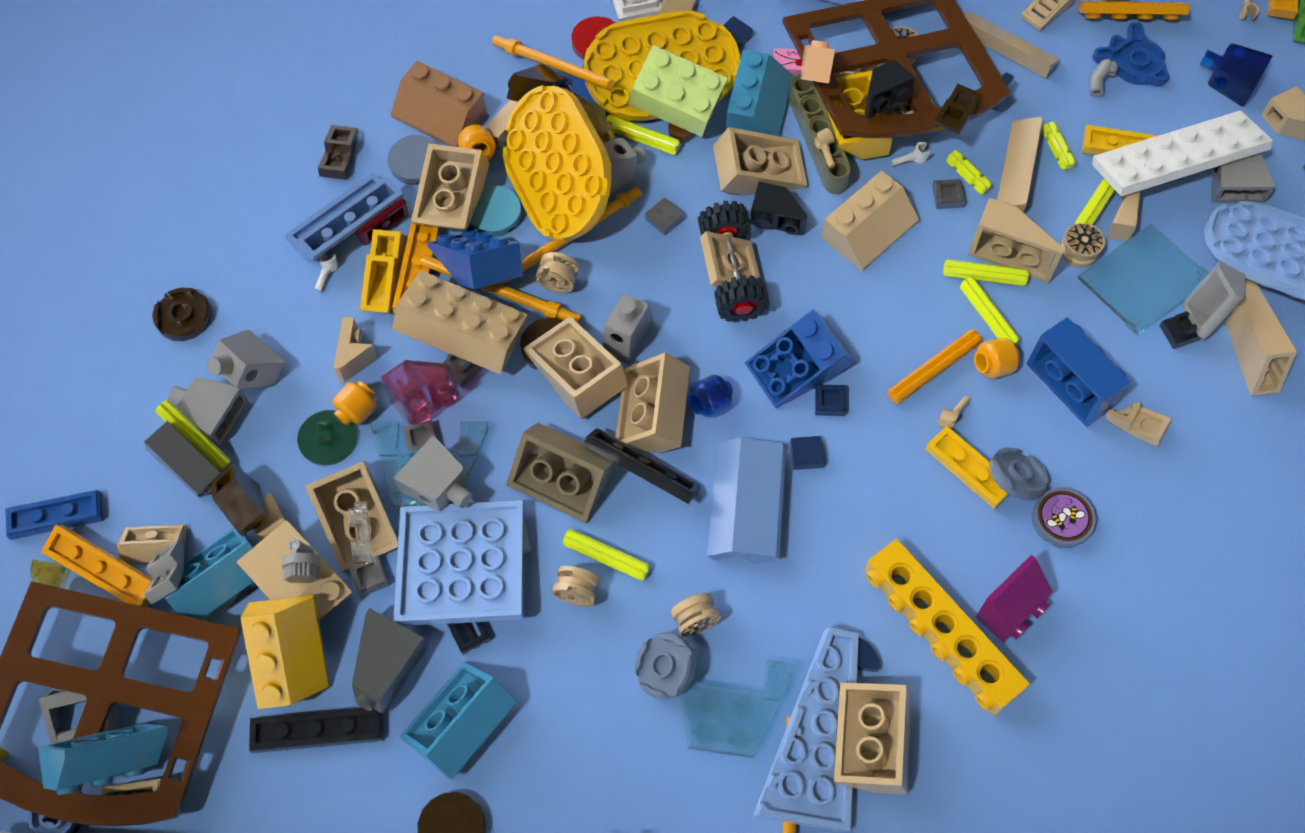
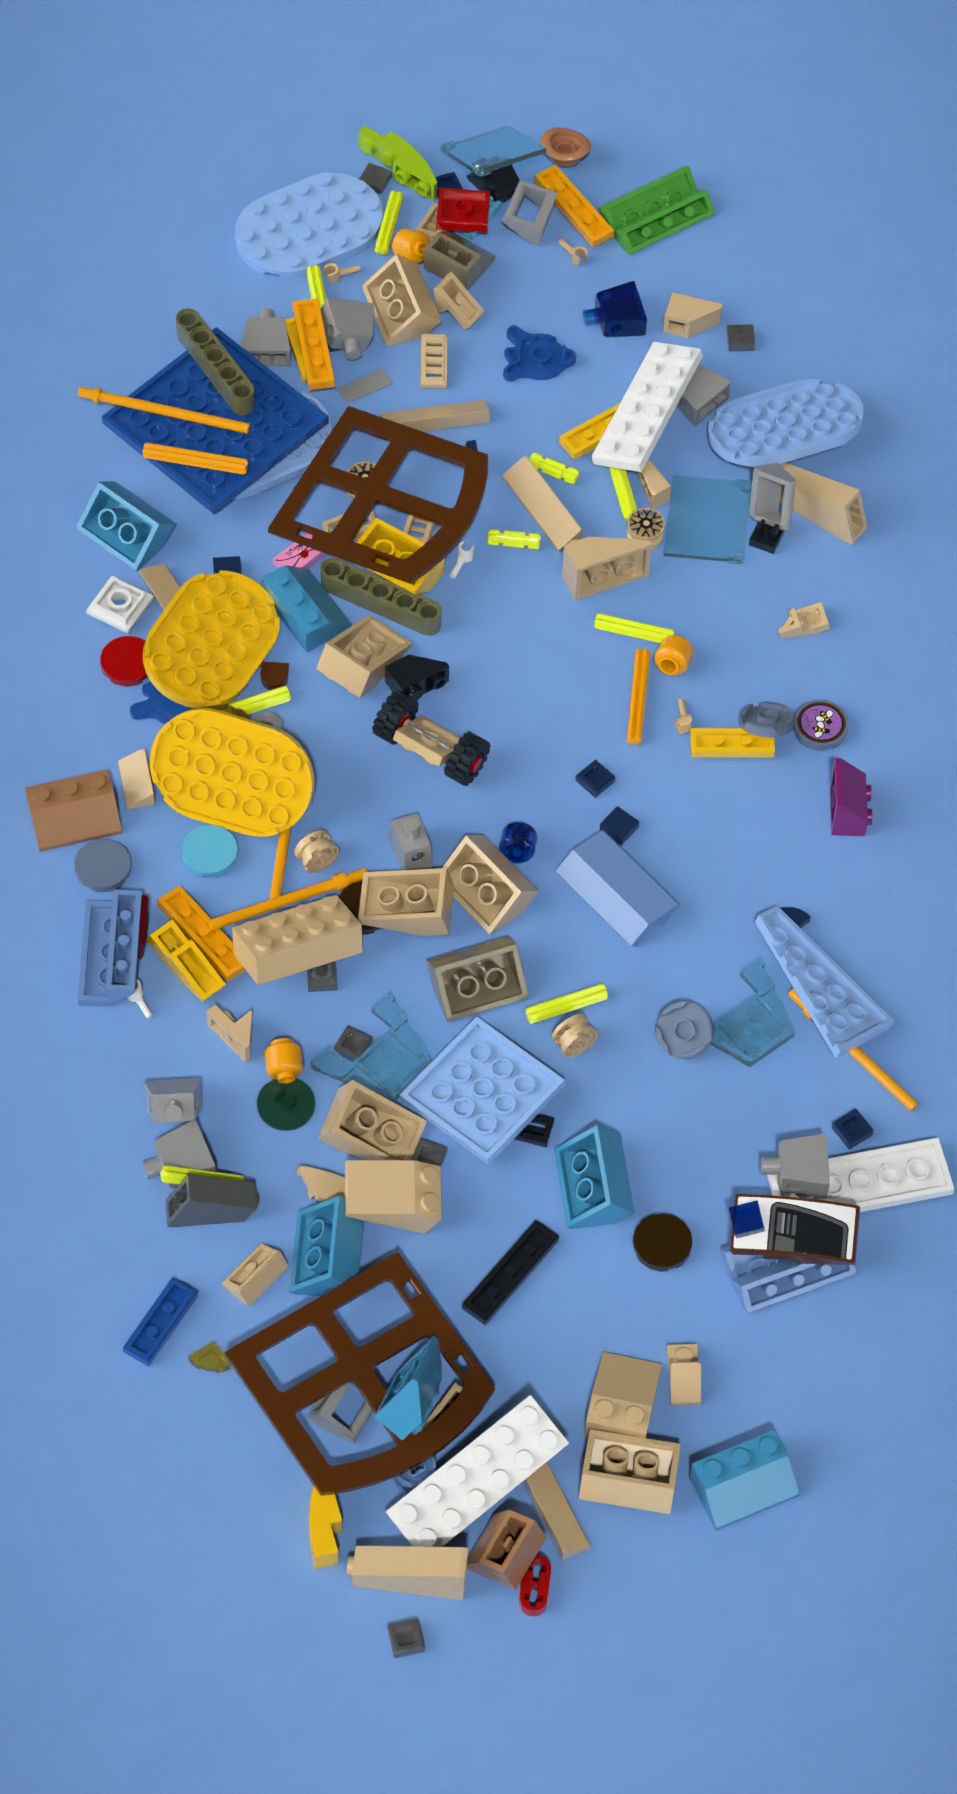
camera: 50 degrees left, 5 degrees down
(97, 565) = (240, 1316): light orange plate -> none
(166, 570) = (299, 1270): light grey slope -> none
(182, 314) = (71, 1120): dark brown tile -> none
(239, 499) = (292, 1183): dark brown slope -> none
(284, 650) = (443, 1236): yellow slope -> none
(300, 564) = (400, 1170): light grey piece -> none
(339, 152) = (36, 910): dark brown slope -> none
(362, 545) = (402, 1126): clear plate -> none
(384, 660) = (506, 1189): dark grey slope -> none
(420, 389) = (323, 1009): clear pink slope -> none
(434, 477) = (407, 1050): light grey torso -> none
(450, 186) = (168, 858): tan slope -> none
(477, 138) = (142, 813): light orange head -> none
(478, 257) = (252, 887): blue slope -> none
(517, 48) = (76, 718): light orange bar -> none
(530, 78) = (136, 730): dark brown slope -> none
(642, 465) = (527, 925): black tile -> none
(664, 216) = (337, 750): flat silver tile -> none
(677, 90) = (253, 647): yellowish green brick -> none
(695, 614) = (665, 982): tan wheel -> none
(799, 359) = (548, 768): blue slope -> none
(817, 62) = (341, 541): light nougat slope -> none
(822, 141) = (398, 600): tan hand -> none
(870, 221) = (488, 631): tan slope -> none
(873, 737) = (853, 953): tan slope -> none
(888, 87) = (409, 521): black slope -> none
(948, 193) = (516, 567): flat silver tile -> none
(958, 109) = (471, 497): dark brown slope -> none
(985, 272) = (602, 602): neon yellow axle -> none
(1008, 681) = (833, 846): yellow brick -> none
(1077, 371) = (737, 620): blue brick -> none
(1097, 77) = (526, 392): light grey arm -> none
(1144, 10) = (502, 313): light orange plate -> none

